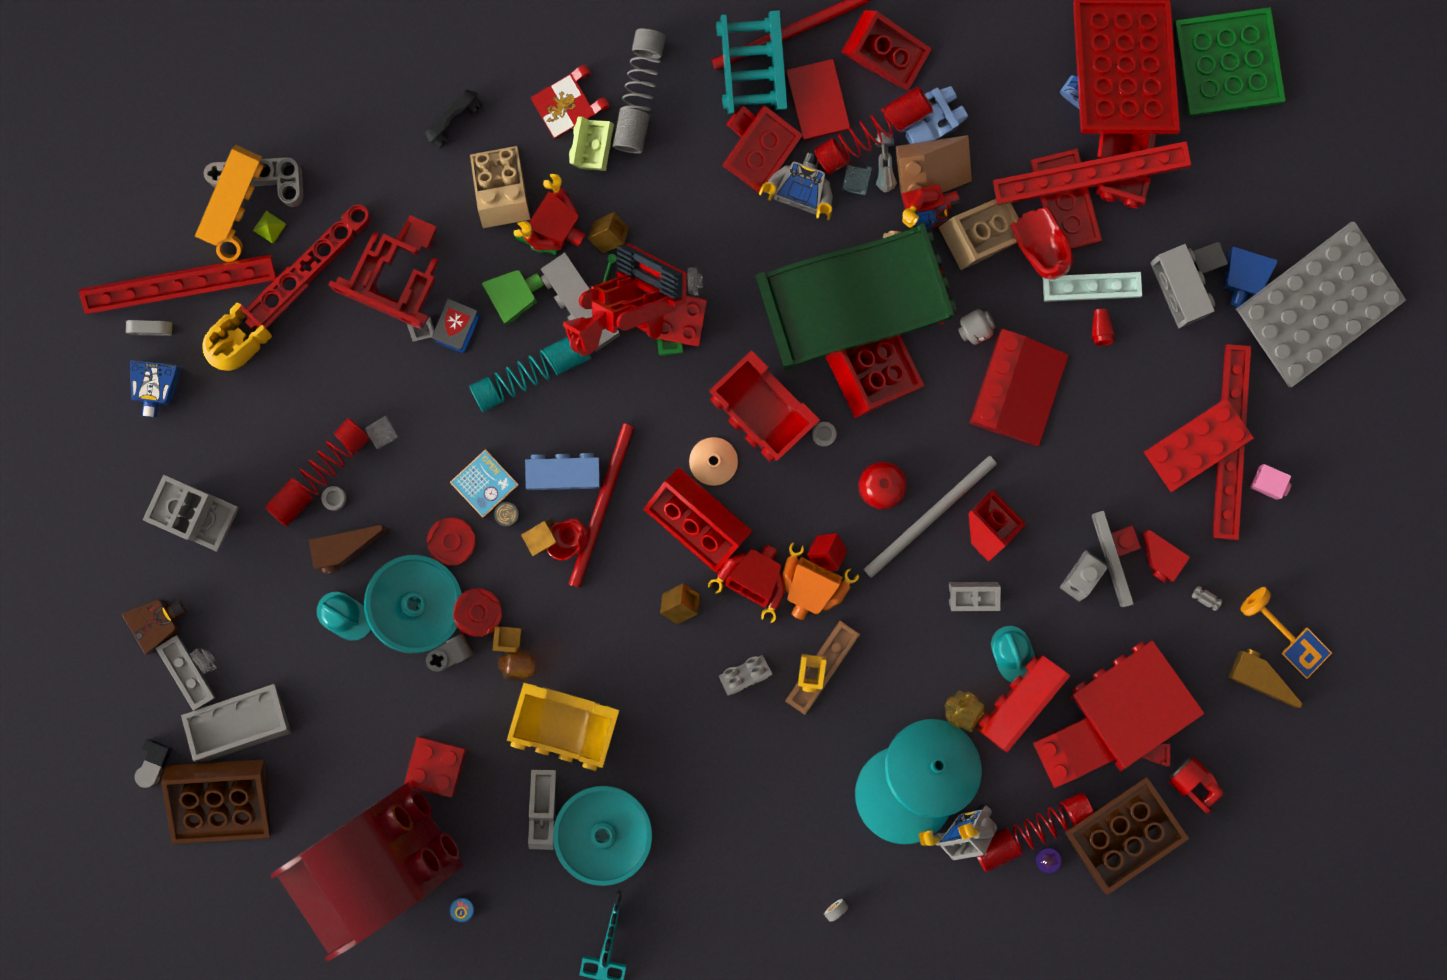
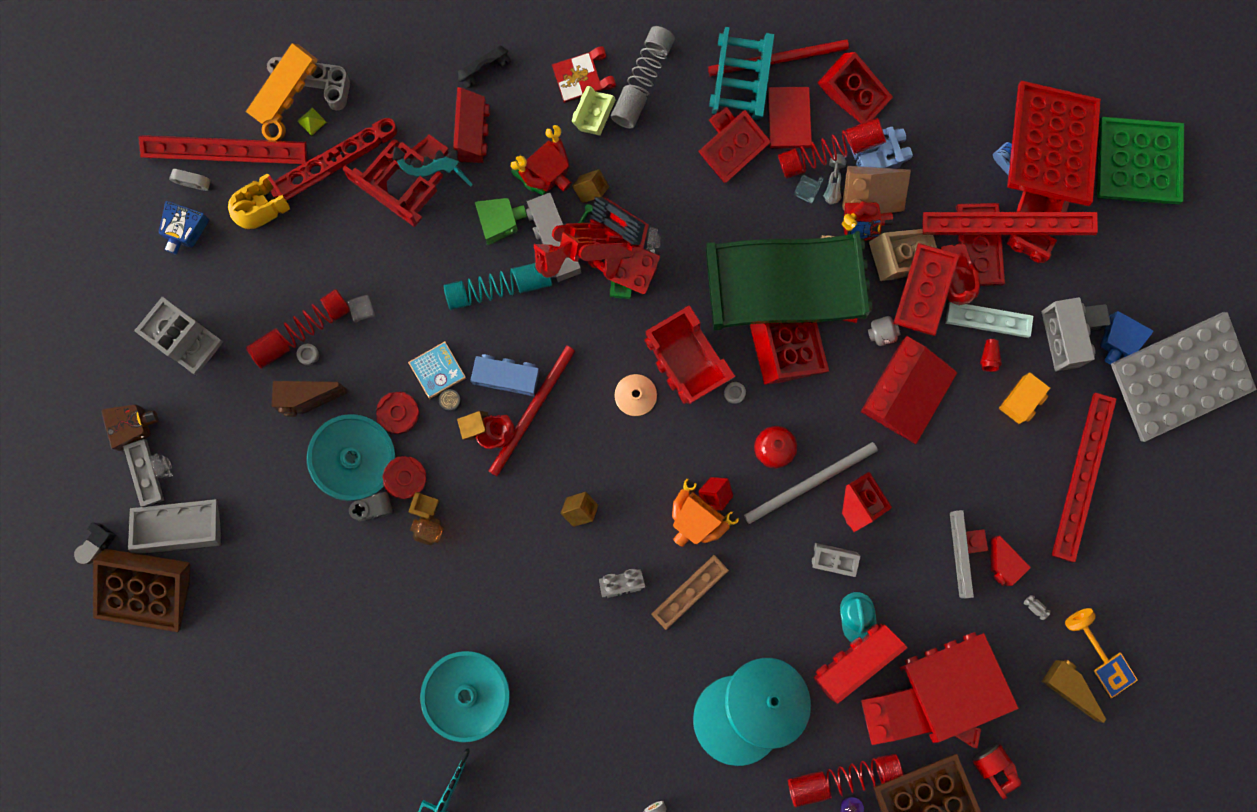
camera: 10 degrees right, 5 degrees down
(343, 616) = (289, 455): teal piece -> none
(370, 870) = (245, 678): dark red brick -> none
(418, 334) = (418, 232): light grey slope -> none
(423, 254) = (430, 166): none -> teal piece
(435, 766) = (335, 602): red brick -> none
(456, 195) = (471, 126): none -> red slope
(456, 326) = (445, 233): piece -> none
(462, 909) = (327, 734): tile -> none
(499, 187) = (508, 129): tan slope -> none
(542, 809) = (418, 660): light grey slope -> none
(562, 725) = (452, 591): yellow cylinder -> none
(697, 519) = (610, 440): red slope -> none
(755, 578) = (648, 500): red torso -> none
(801, 187) = (760, 183): torso -> none
(807, 684) = (682, 584): yellow window -> none
(964, 710) = (805, 657): clear yellow brick -> none
(967, 835) = (785, 771): light grey torso -> none
(1013, 271) = (926, 289): none -> red tile
(1084, 576) = (935, 563): light grey torso -> none
(1149, 368) = (1025, 398): none -> light orange brick
(1198, 445) = (1055, 473): red plate -> none
(1271, 482) = (1112, 519): bright pink brick -> none

